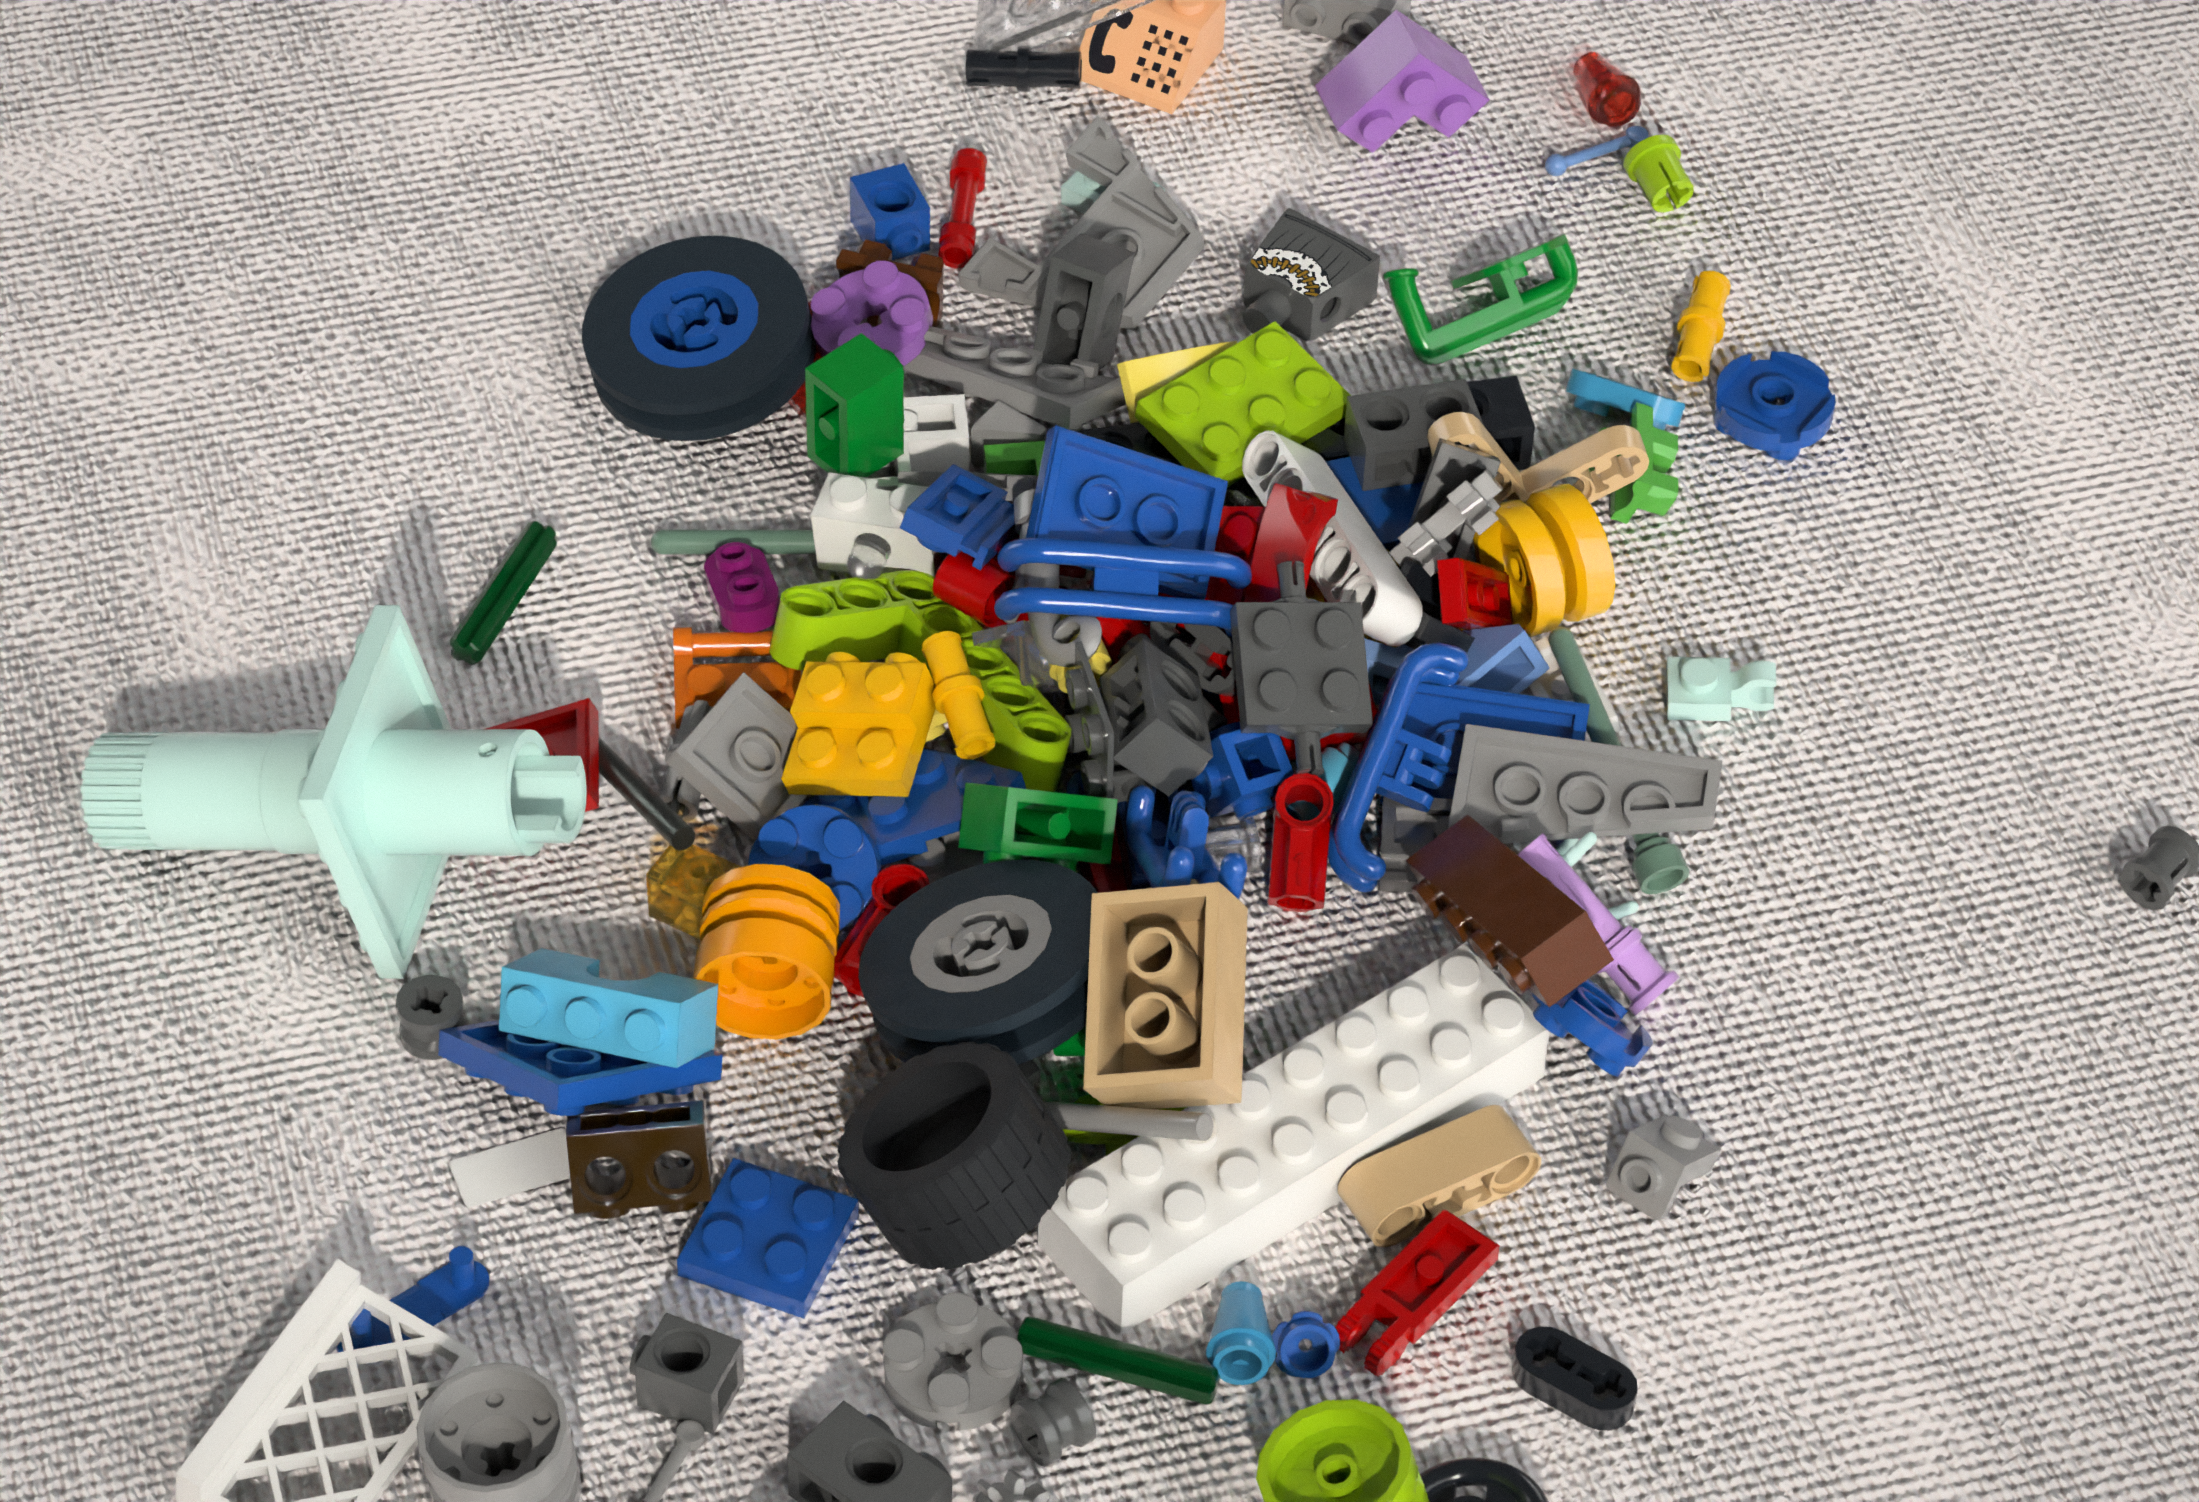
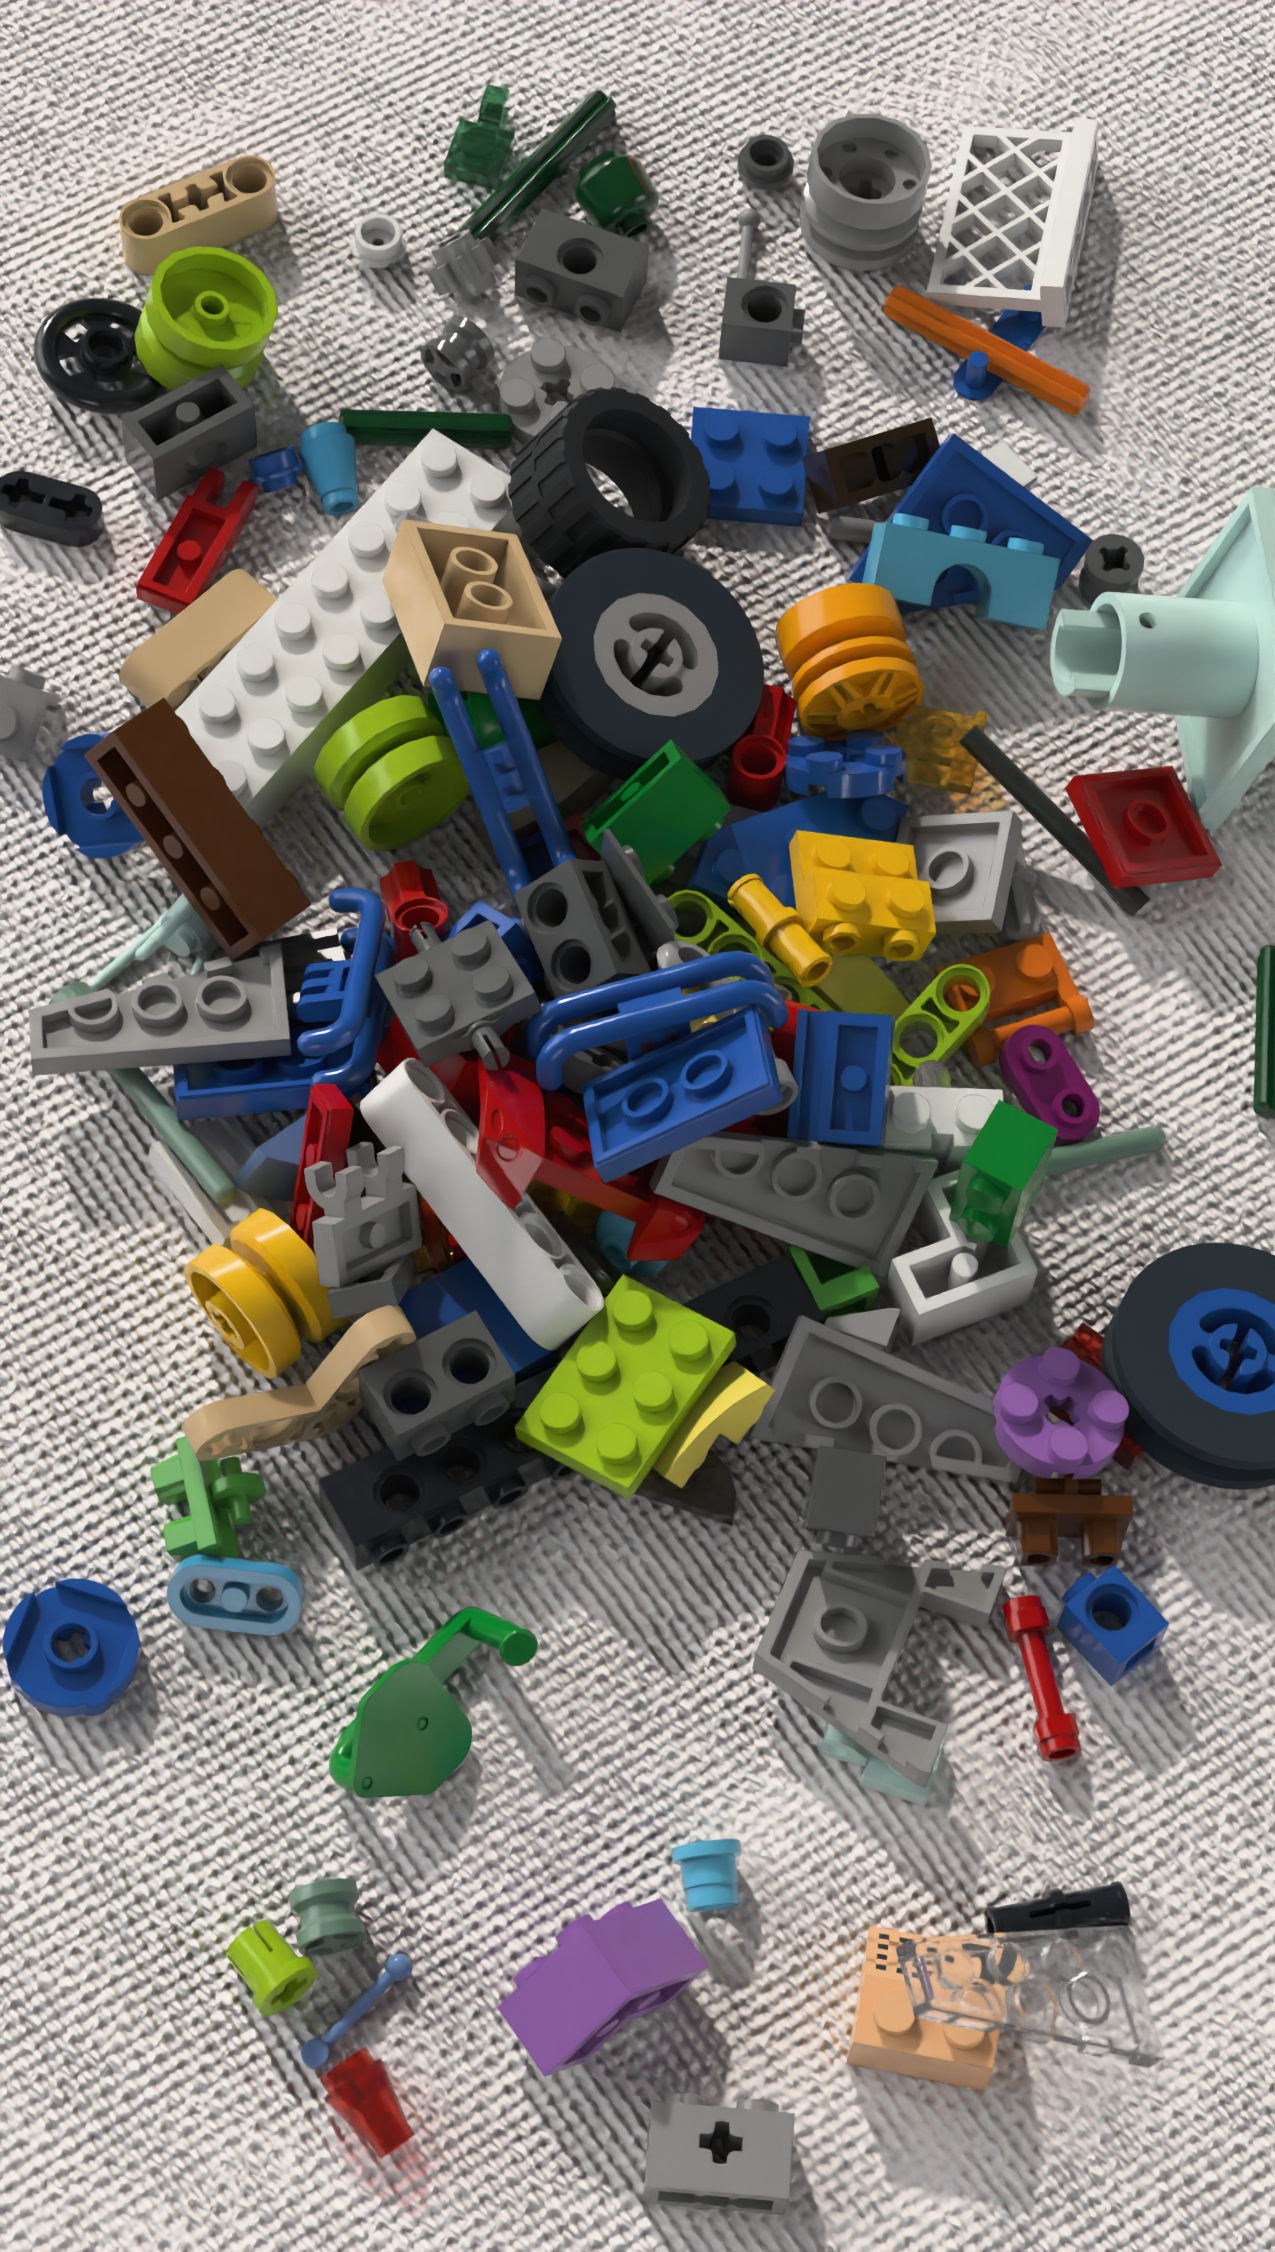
camera: 160 degrees right, 15 degrees up
(431, 1280) = (1003, 357): none -> orange axle
(1284, 164) = (709, 1873): none -> medium azure piece
(1298, 957) = (392, 773): none -> lime wheel
(1307, 278) = (629, 1664): dark grey torso -> none
(1412, 1370) = (189, 432): none -> dark grey brick
(1606, 189) = (327, 1917): none -> sand green wheel
(1633, 965) = (99, 882): lavender pin -> none
(1701, 326) = (174, 1739): yellow pin -> none
(1708, 689) = (74, 1245): light aqua plate -> none

